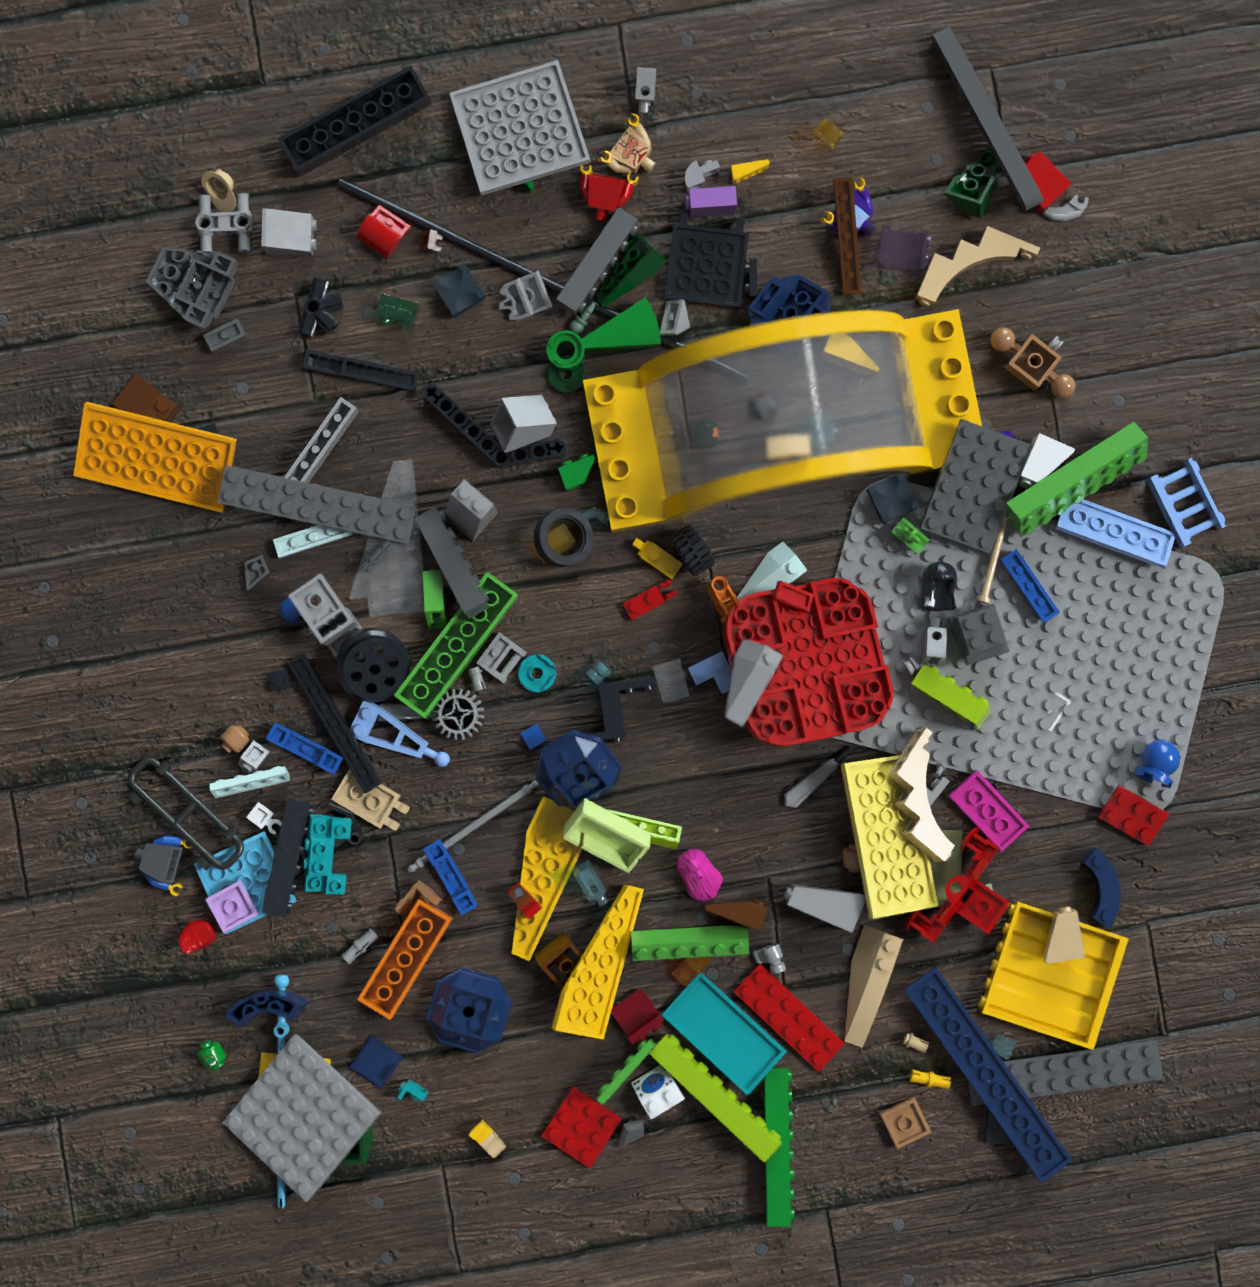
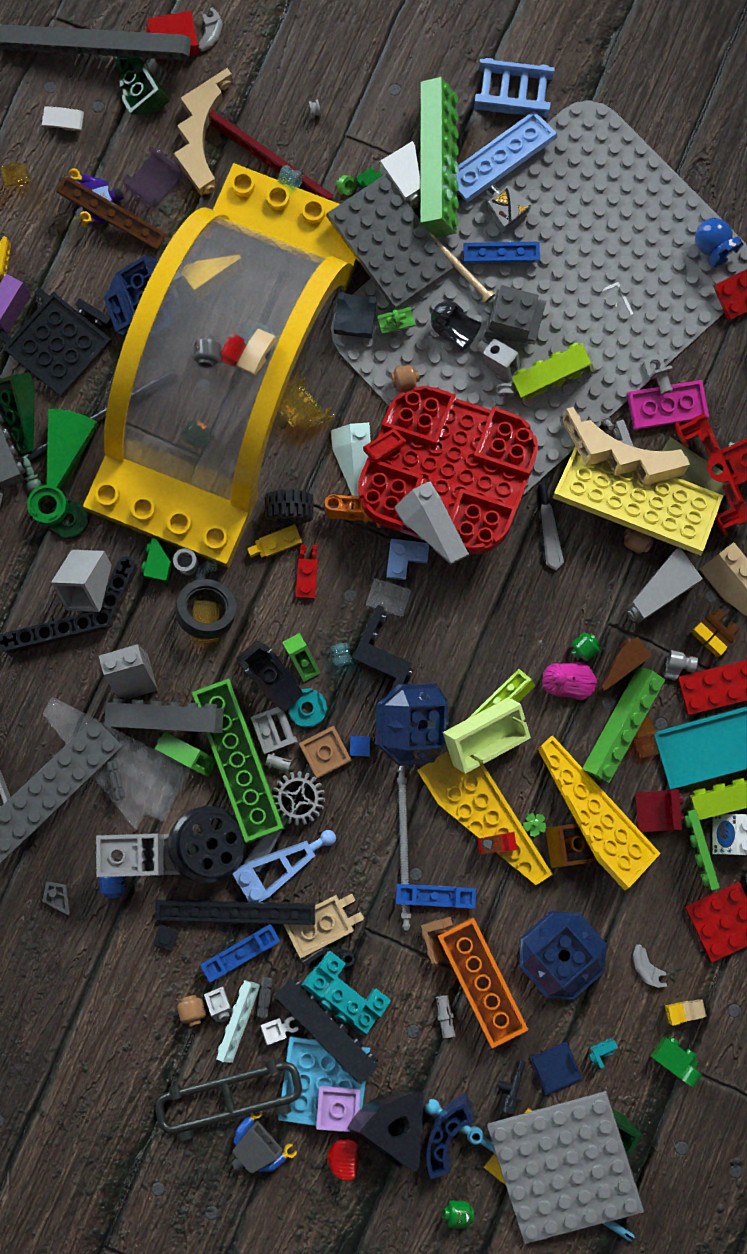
camera: 55 degrees left, 5 degrees down
(246, 958) = (392, 1126): none -> black piece
(282, 790) = (264, 997): none -> dark grey axle
(307, 539) = (60, 831): light aqua plate -> none
(323, 1041) = (509, 1102): none -> black piece
(443, 1156) = (677, 1060): none -> green hinge
(501, 1086) = (645, 969): none -> light grey piece
(510, 711) = (325, 752): none -> medium nougat plate
(542, 625) = (270, 675): none -> black piece
(561, 921) = (534, 824): none -> bright green plant
(575, 641) = (301, 657): none -> bright green slope
(587, 877) = (512, 776): clear light blue torso -> none
(592, 494) = (185, 561): none -> light grey piece
(675, 318) = (82, 398): light grey slope -> none
(735, 870) = (585, 646): none -> green head
(777, 427) = (232, 350): none -> red brick
(784, 505) = (300, 407): none -> clear yellow torso
(817, 980) = (723, 637): none -> hips
(866, 575) = (405, 378): none -> medium nougat head
(905, 138) = (62, 118): none -> white slope
(977, 366) = (290, 177): none -> clear light blue wheel
(985, 335) = (262, 152): none -> dark red tile
(1004, 416) = (346, 185): none -> bright green tile
(1009, 787) = (659, 374): none -> light grey bracket
(1020, 365) = (328, 136): medium nougat brick -> none
(1020, 430) = (367, 177): none -> green slope
(1073, 564) = (506, 206): none -> light grey torso

